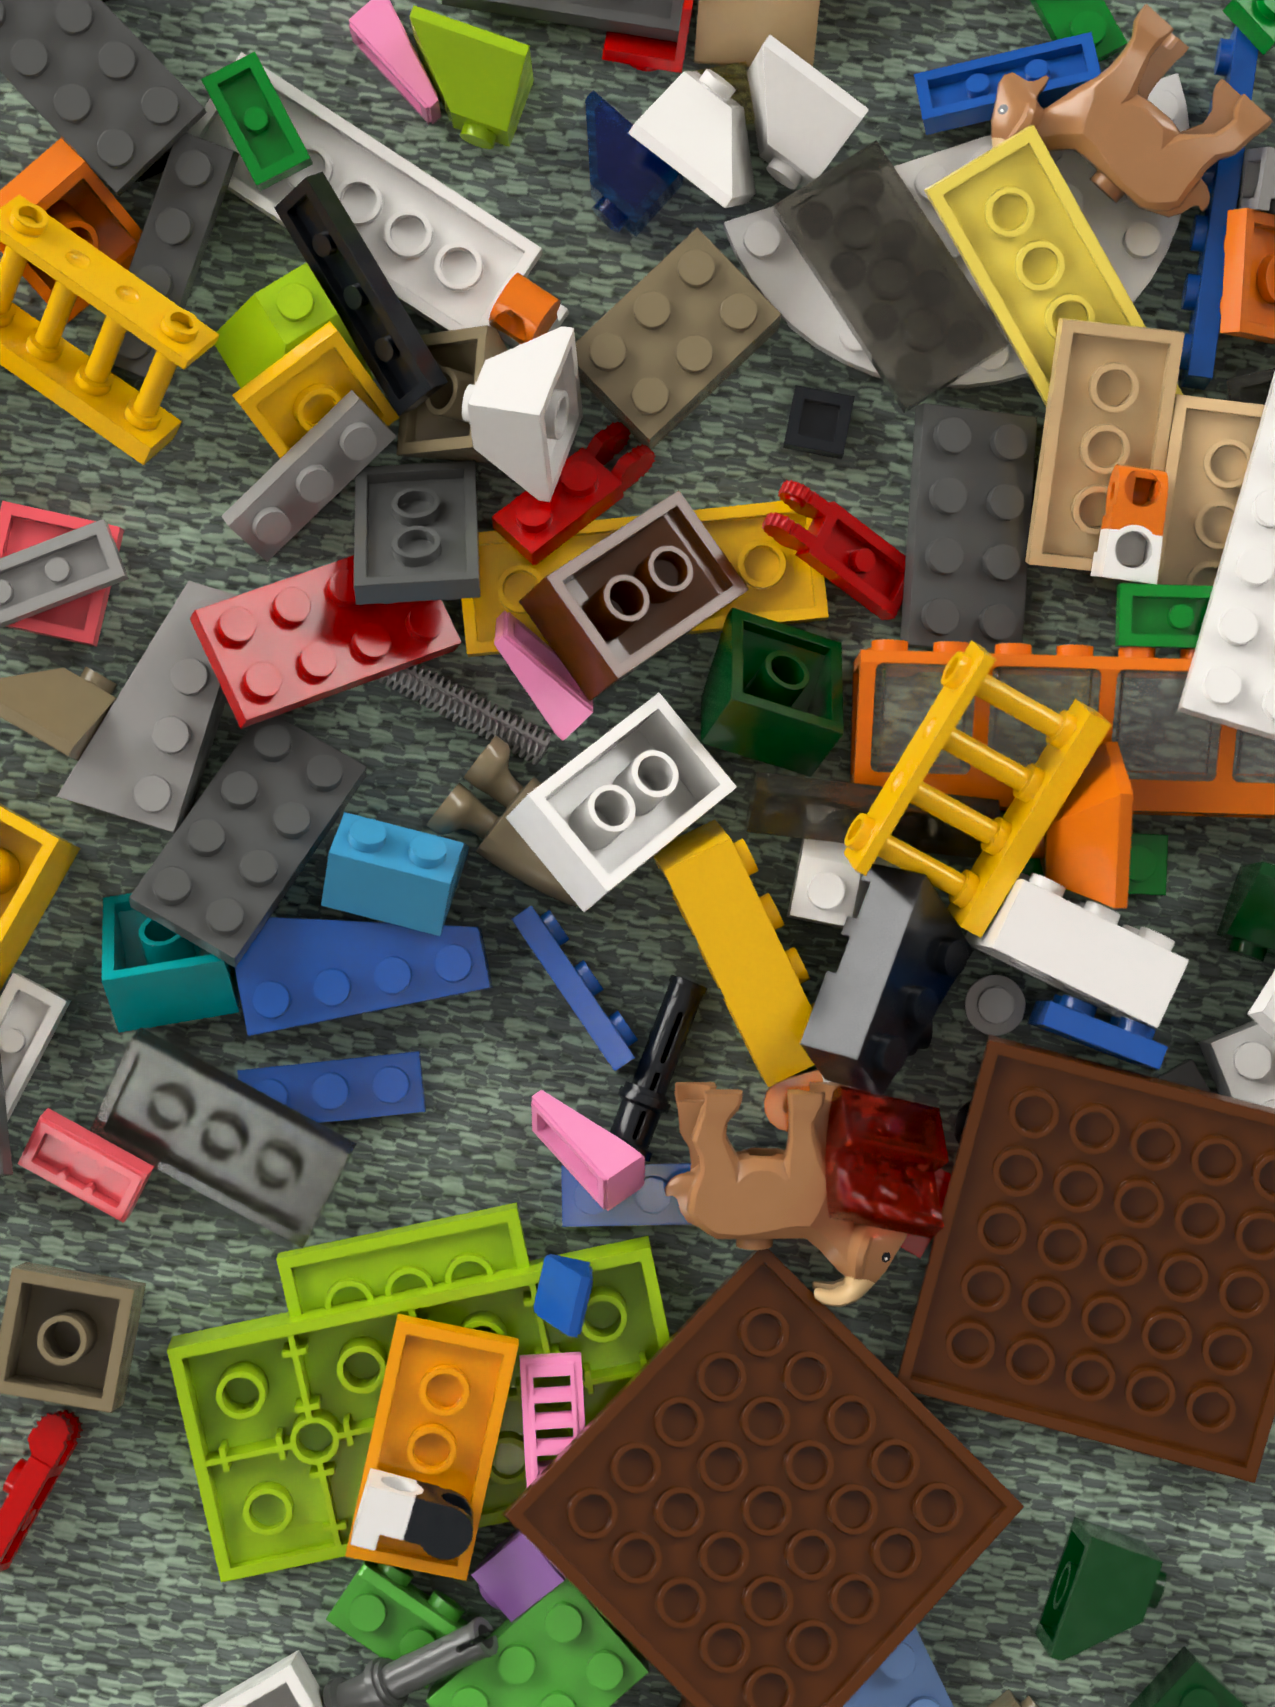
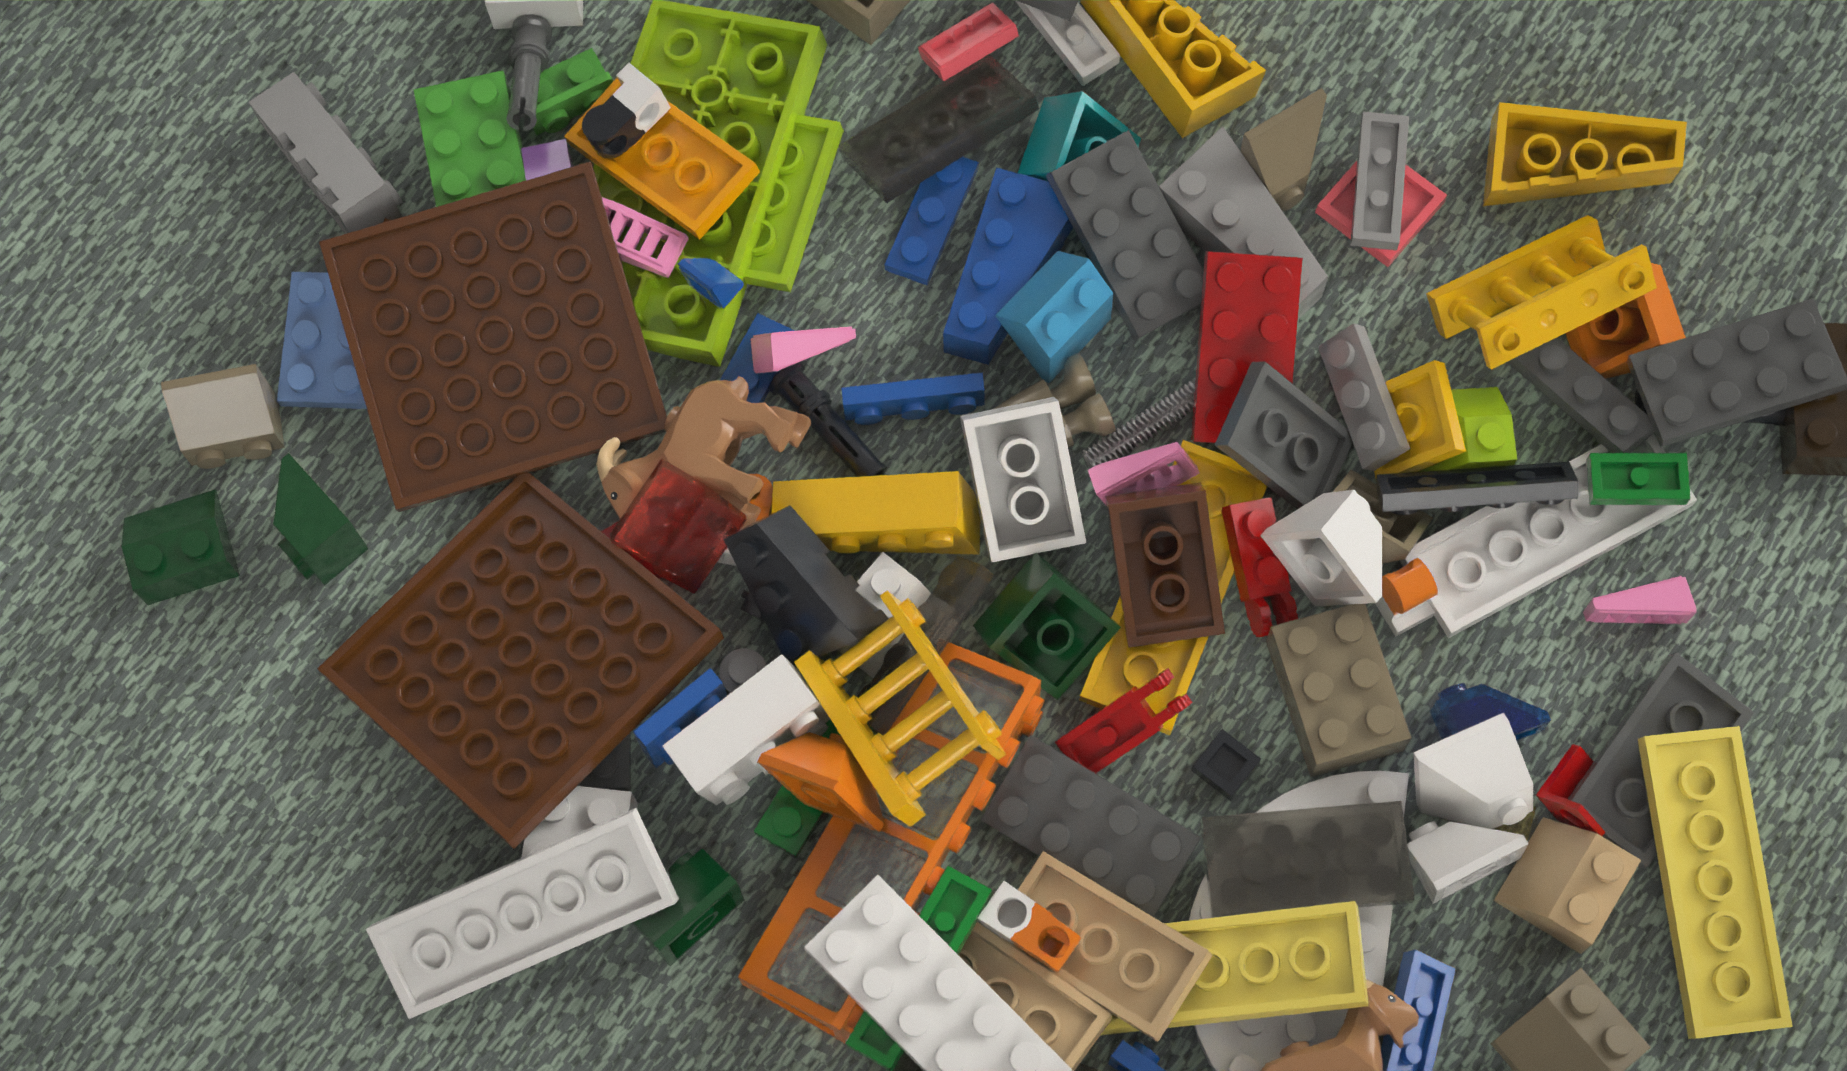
camera: 120 degrees right, 15 degrees down
(476, 75) = (1598, 642): lime slope -> none

